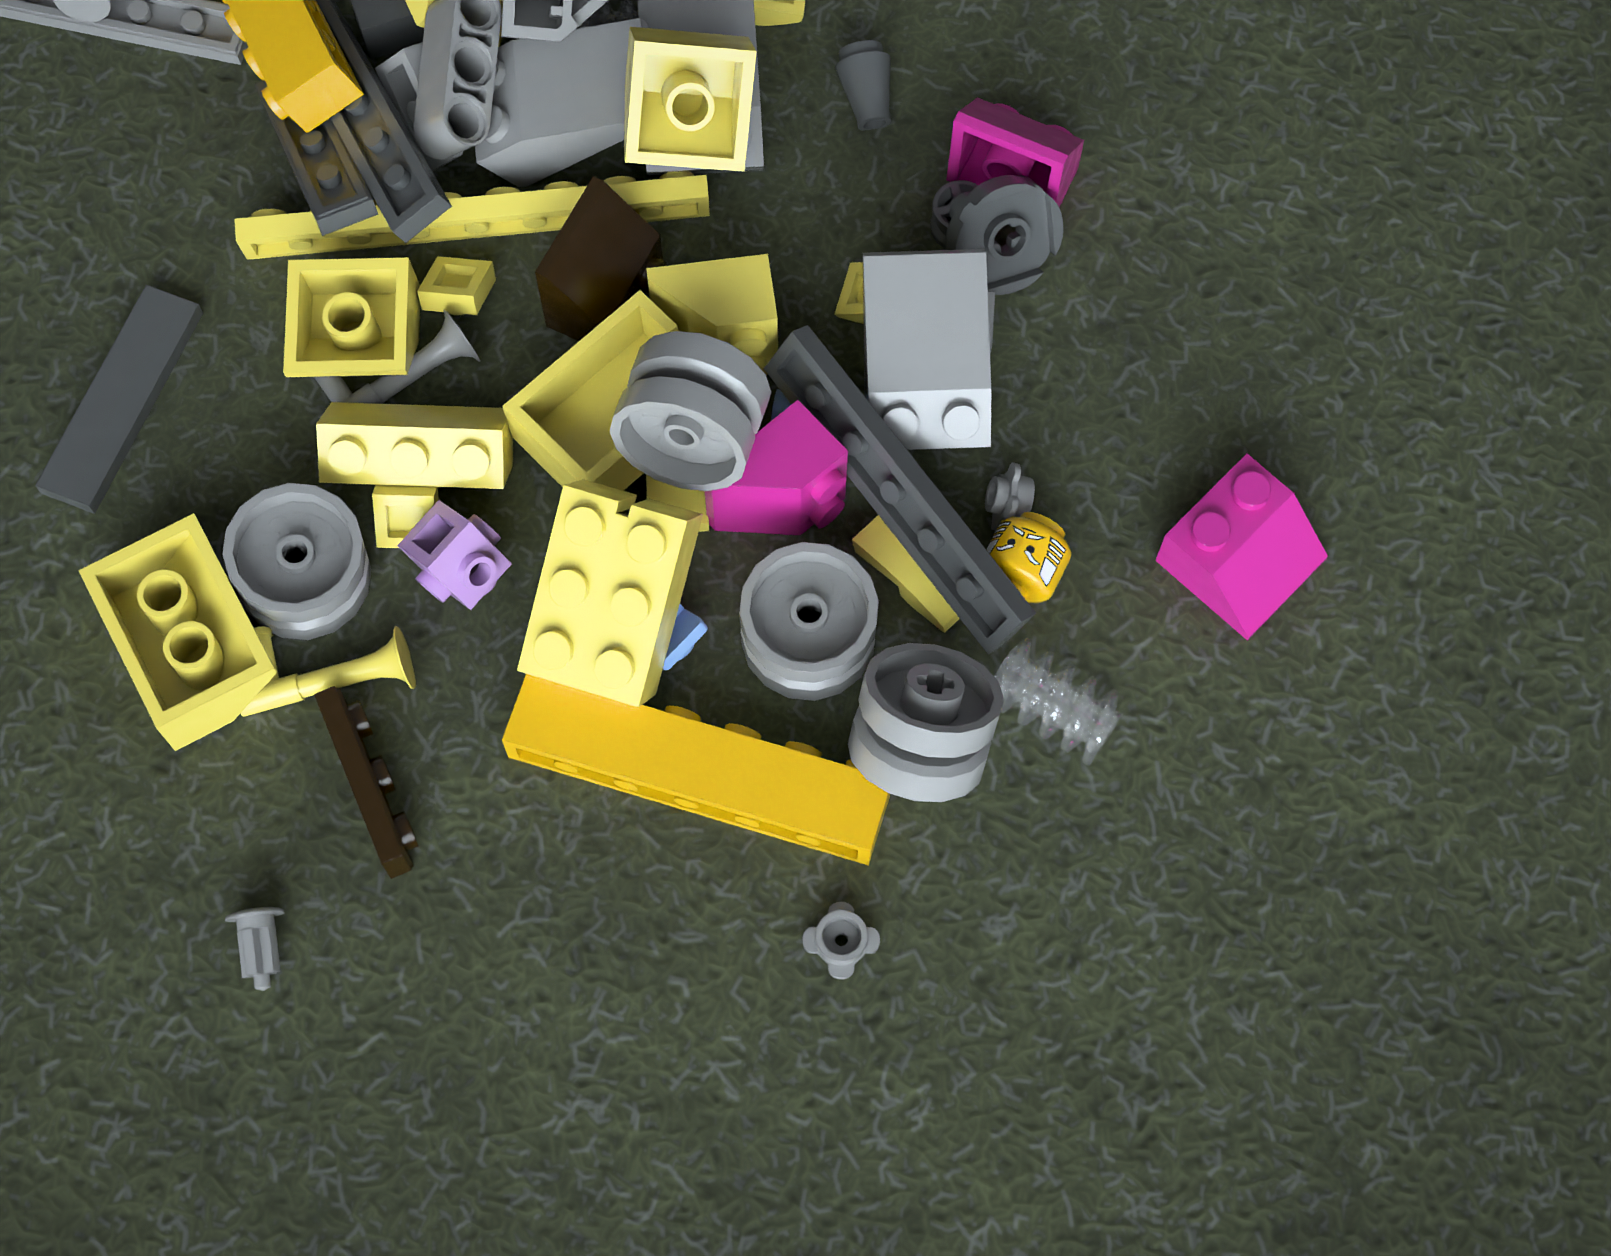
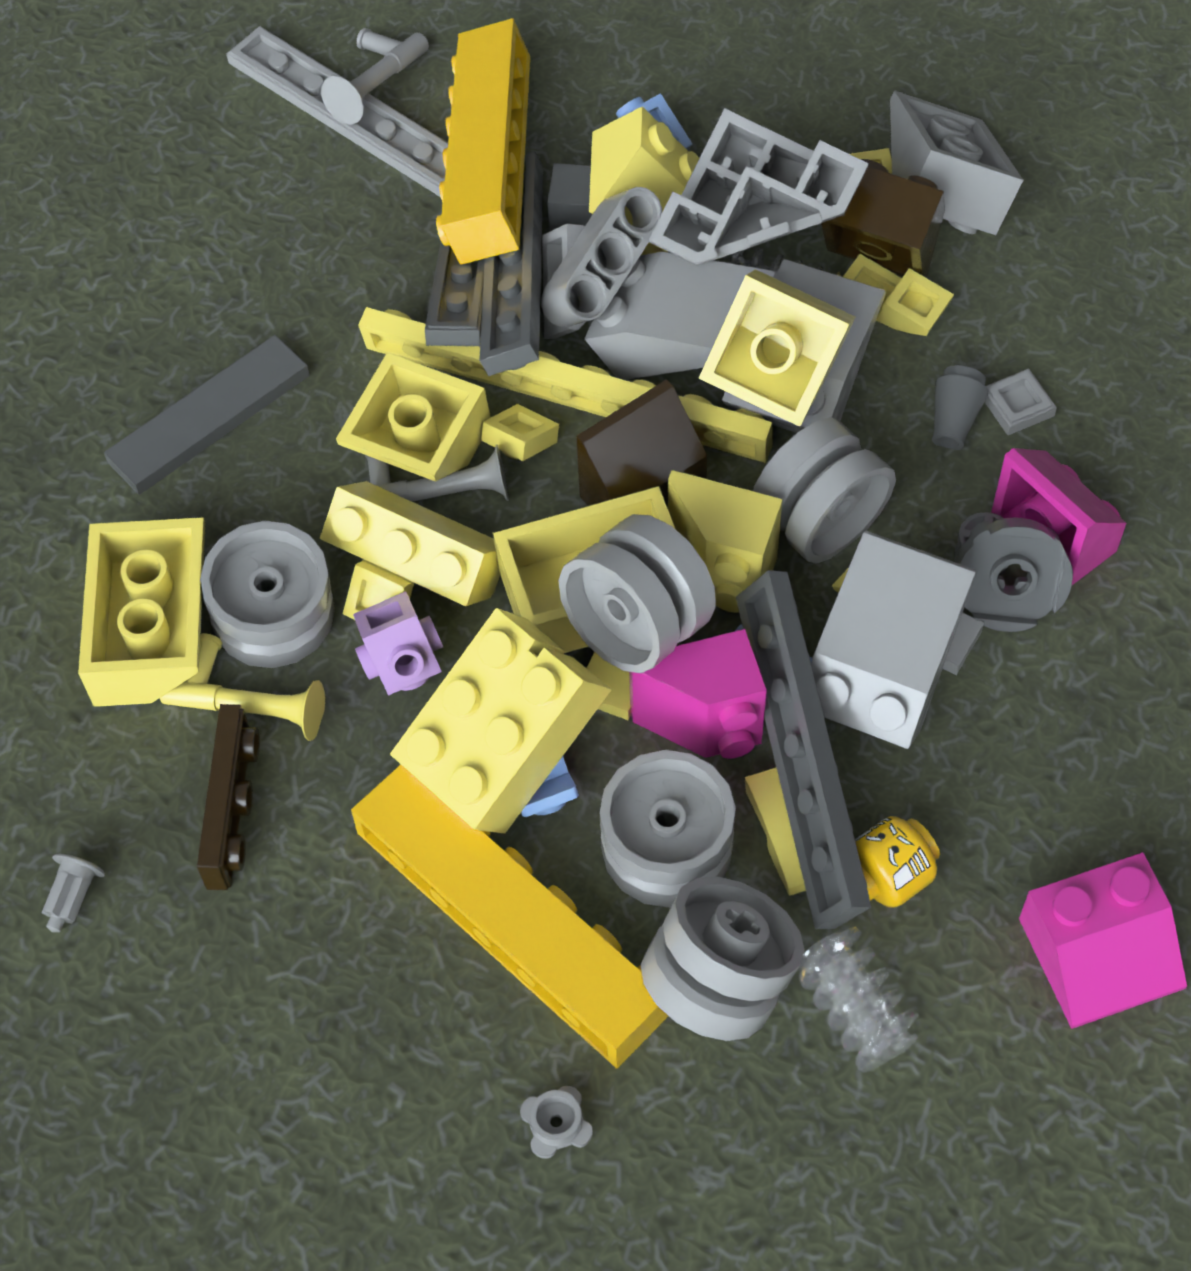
camera: 30 degrees right, 10 degrees down
(792, 221) = (826, 488): none -> light grey wheel
(921, 54) = (1019, 402): none -> light grey tile
(1009, 495) = (908, 798): light grey plate -> none

